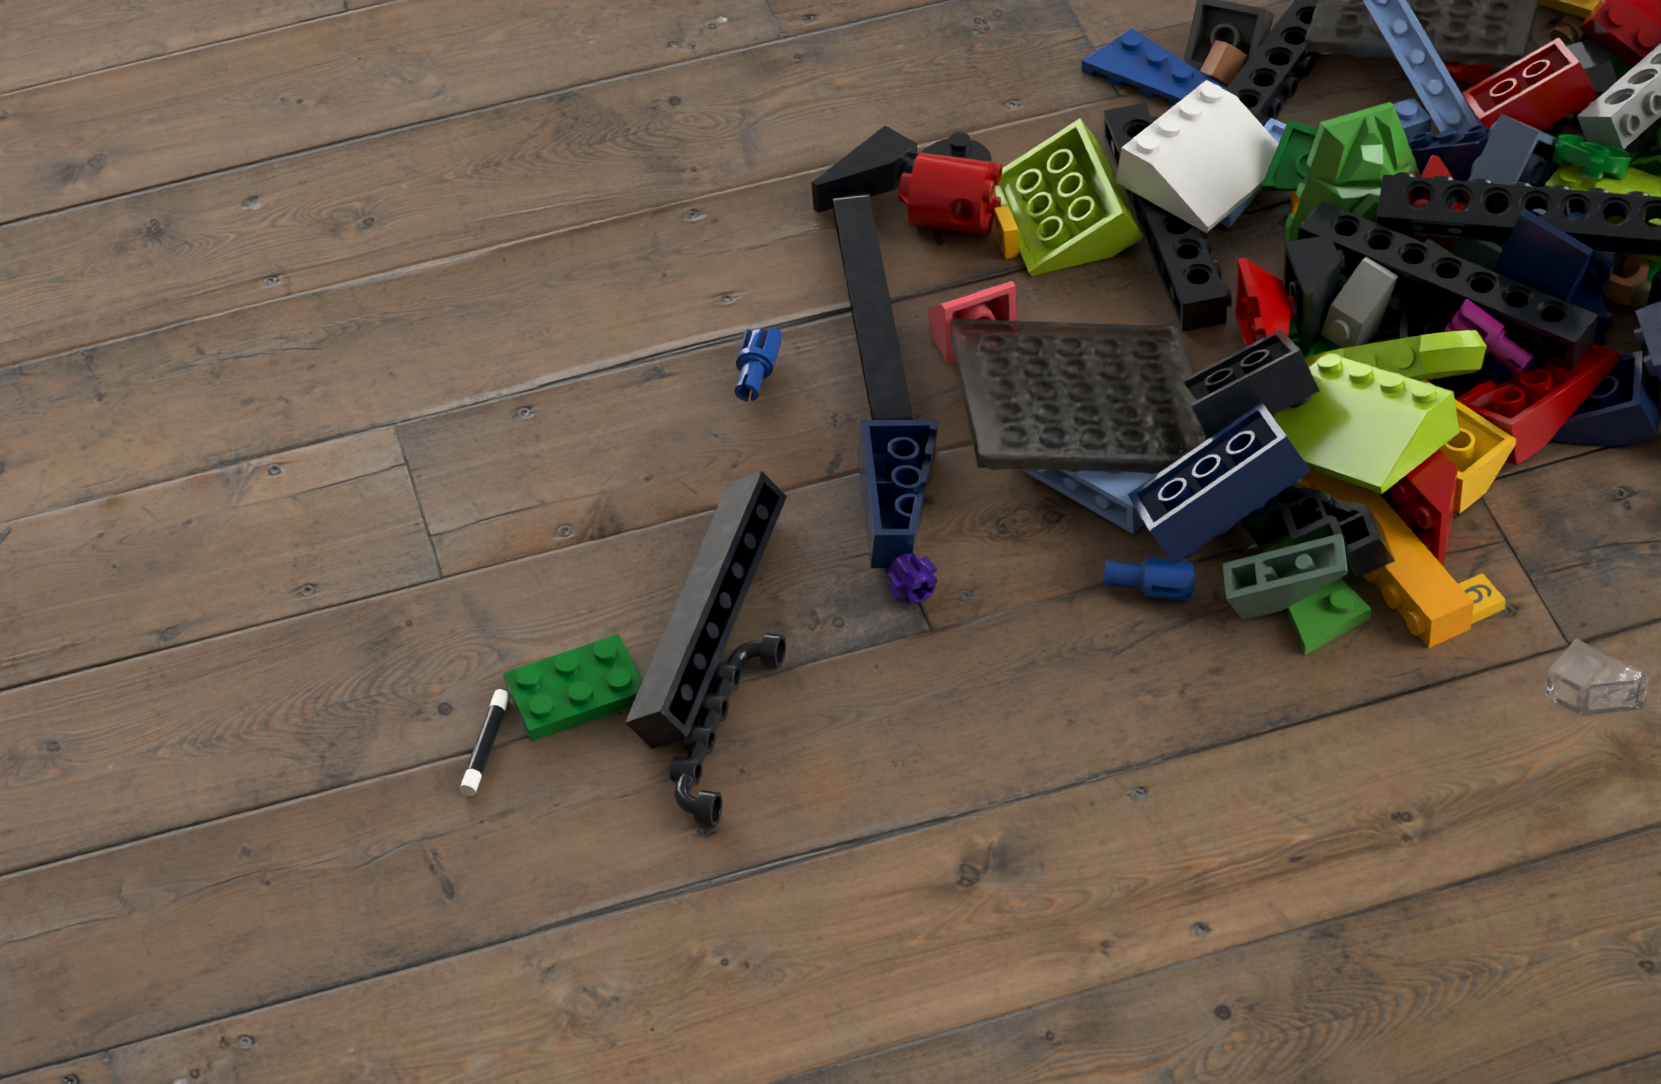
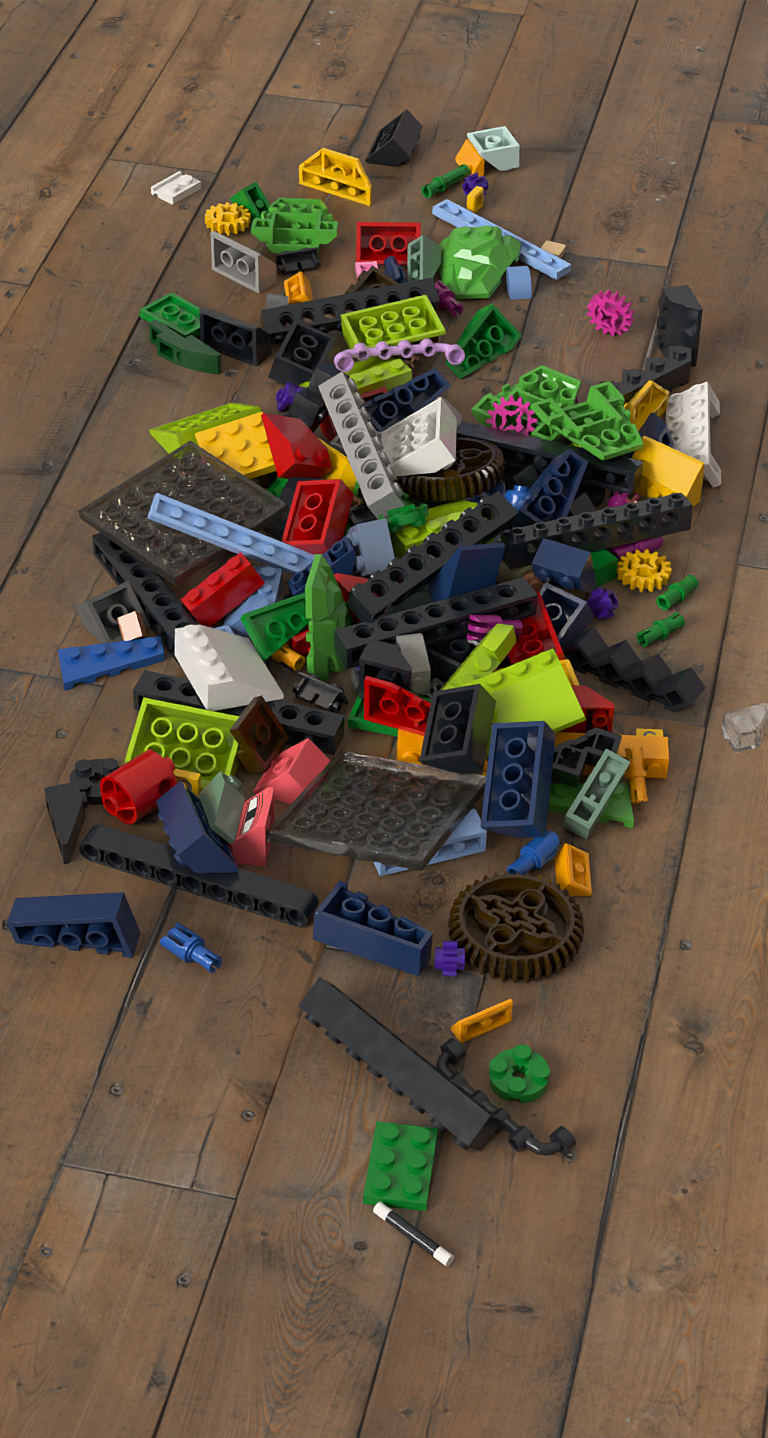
camera: 65 degrees left, 5 degrees down
(715, 258) = (75, 922): none -> dark blue wedge
(783, 708) = (520, 1060): none -> green plate
(843, 656) = (483, 1021): none -> light orange slope
(914, 271) = (191, 833): none -> dark blue slope
(973, 272) = (223, 805): none -> sand green slope
(1018, 613) = (516, 926): none -> dark brown gear
(1103, 304) = (293, 771): none -> coral slope
(1116, 241) = (258, 736): none -> dark brown plate
(1168, 630) = (573, 871): none -> light orange slope
(1268, 252) = (329, 695): none -> black hinge
(1335, 88) = (223, 590): none -> red slope
(1376, 604) = (636, 775): none -> light orange pin
(1585, 519) = (621, 666): none -> black brick

